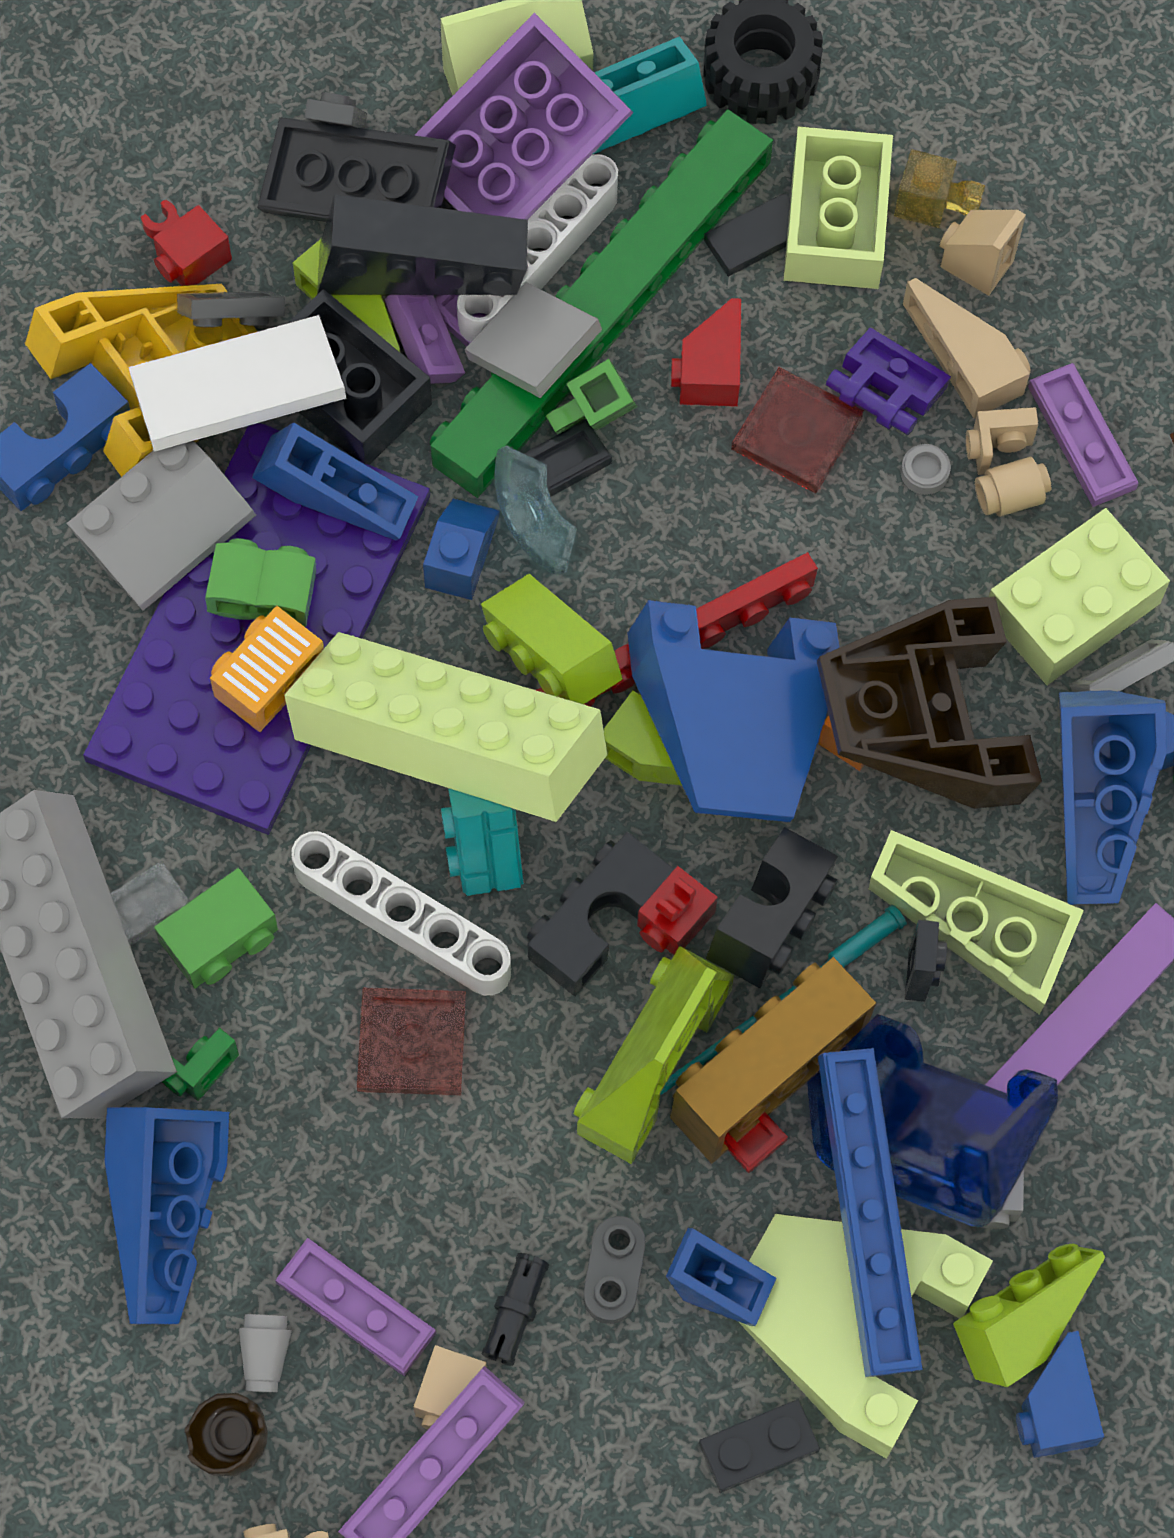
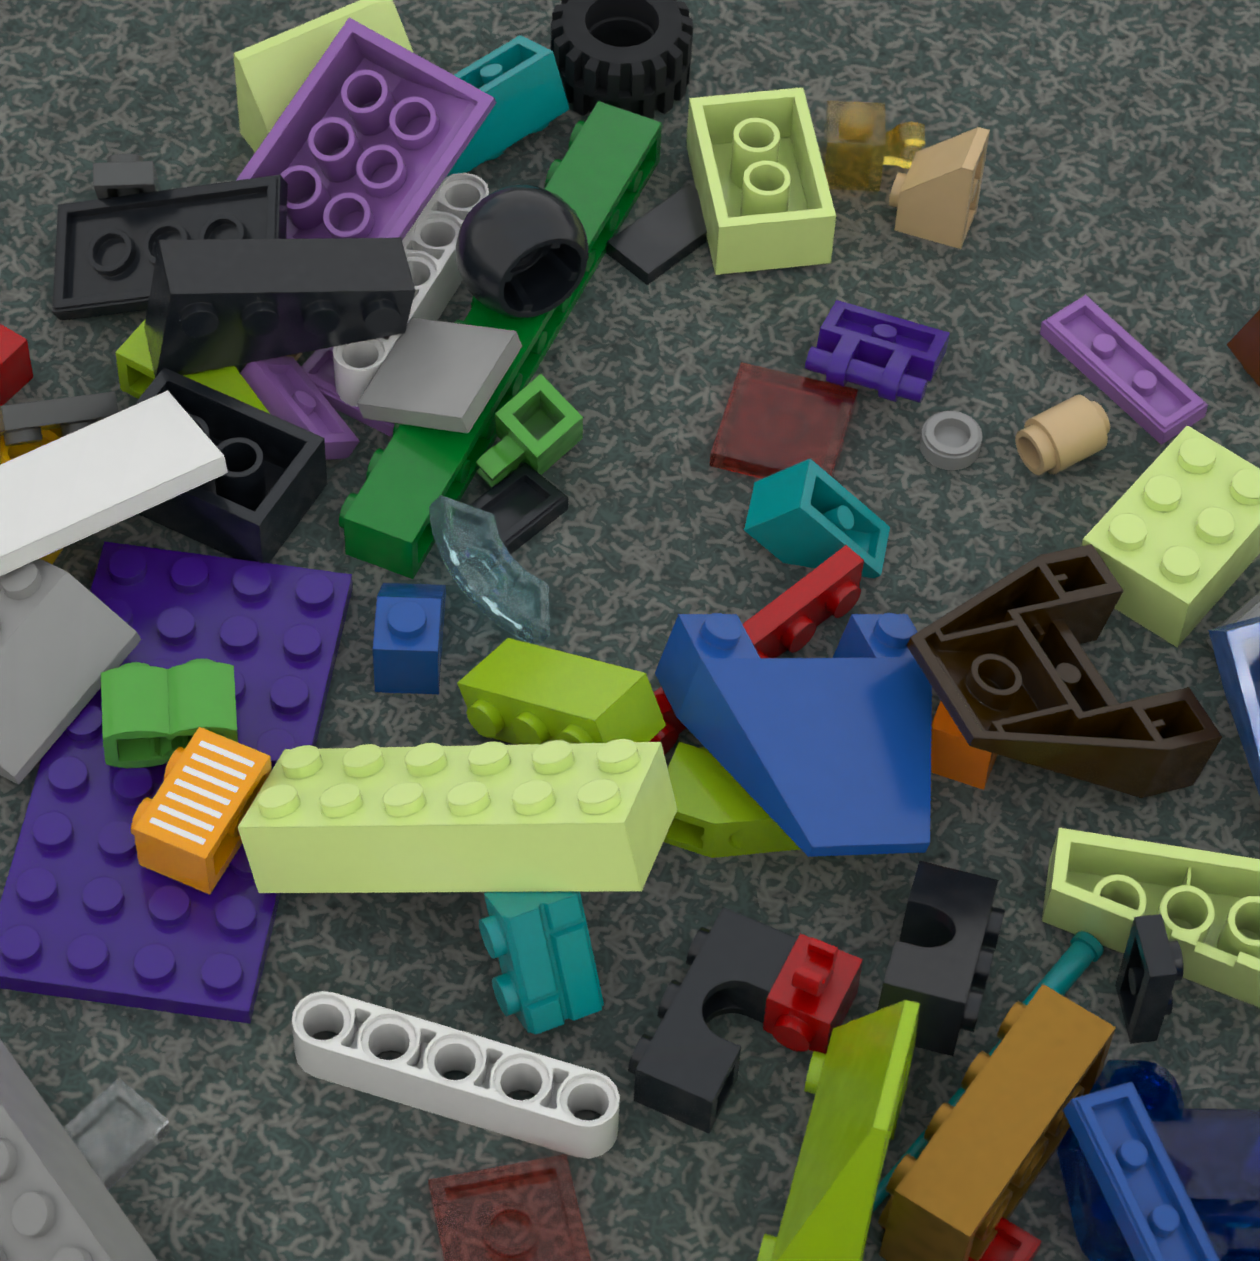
camera: 15 degrees left, 15 degrees down
(217, 929) = (214, 1148): bright green brick -> none
(333, 482) = (229, 579): blue slope -> none
(620, 249) = (522, 251): none -> black wheel
(711, 360) = (659, 369): red slope -> none
(795, 522) = (810, 516): none -> teal slope
(972, 352) = (980, 306): tan slope -> none
(1001, 429) = (1027, 378): tan bracket -> none

